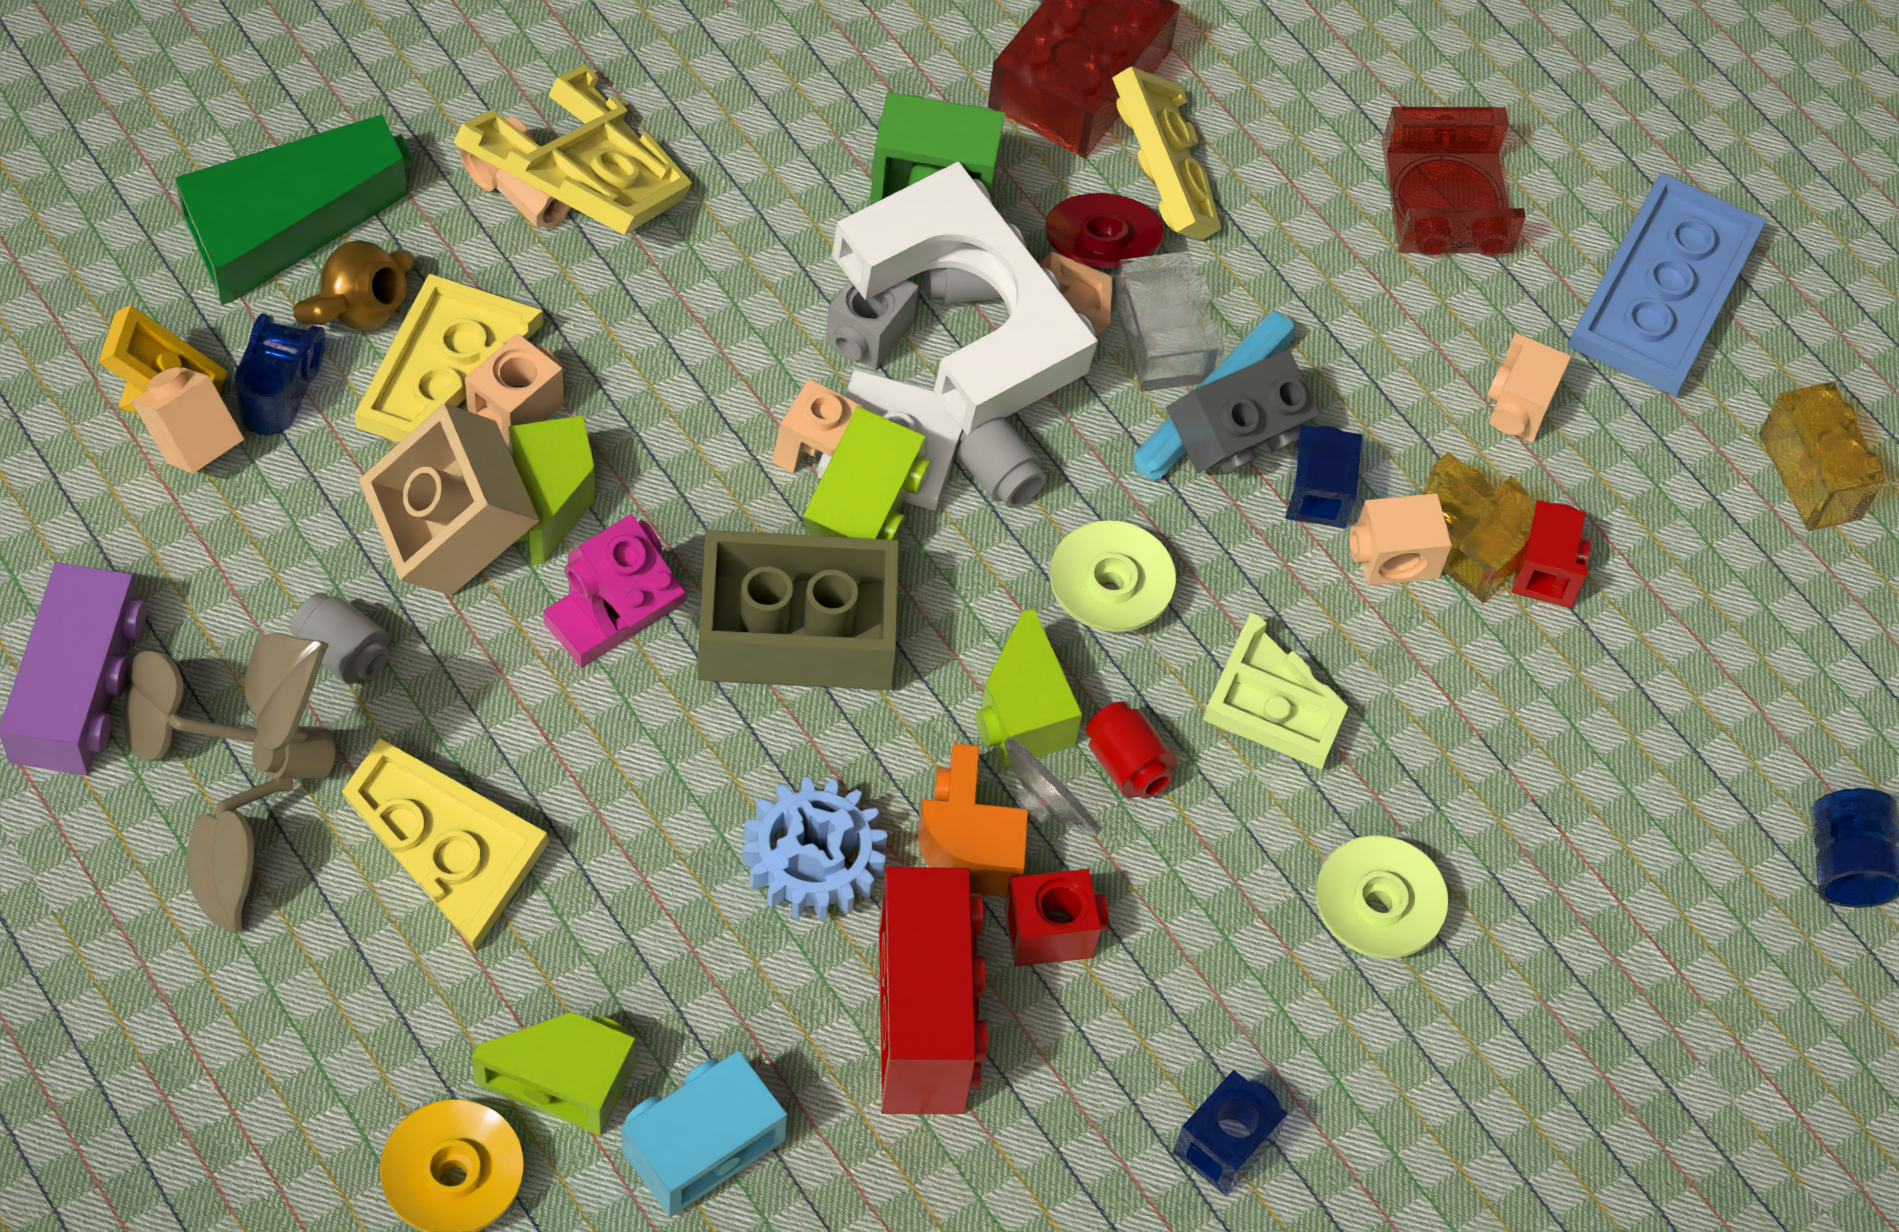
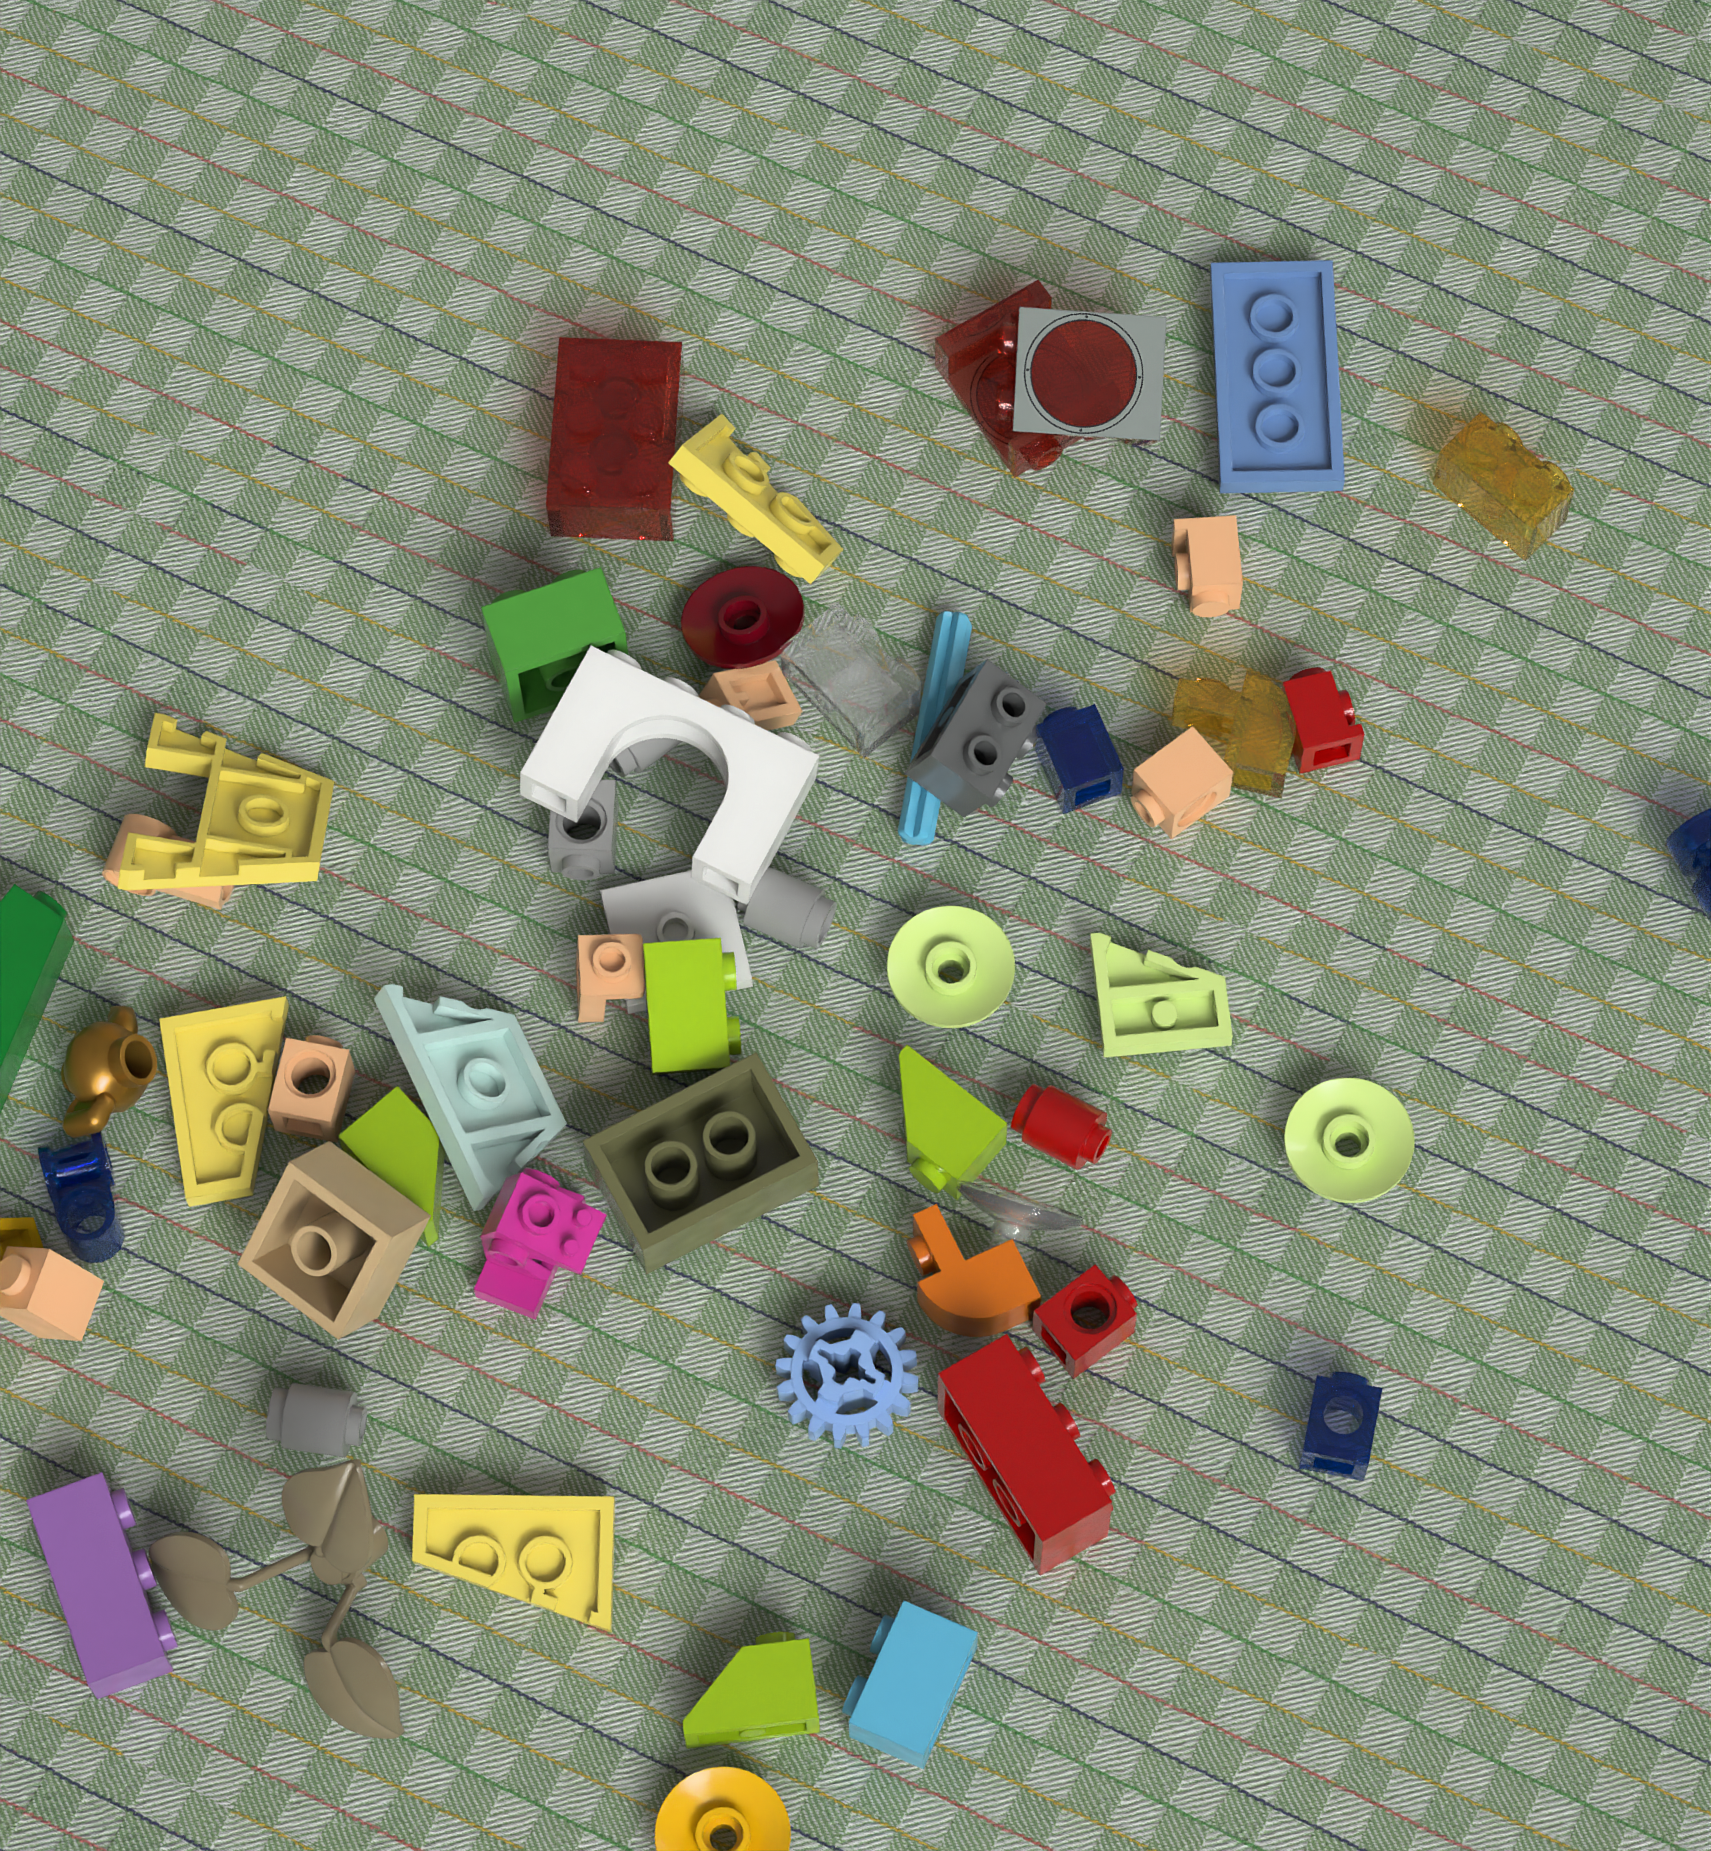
camera: 20 degrees left, 10 degrees up
(649, 451) = (475, 1086): none -> light aqua wing
(1503, 188) = (1082, 374): none -> panel

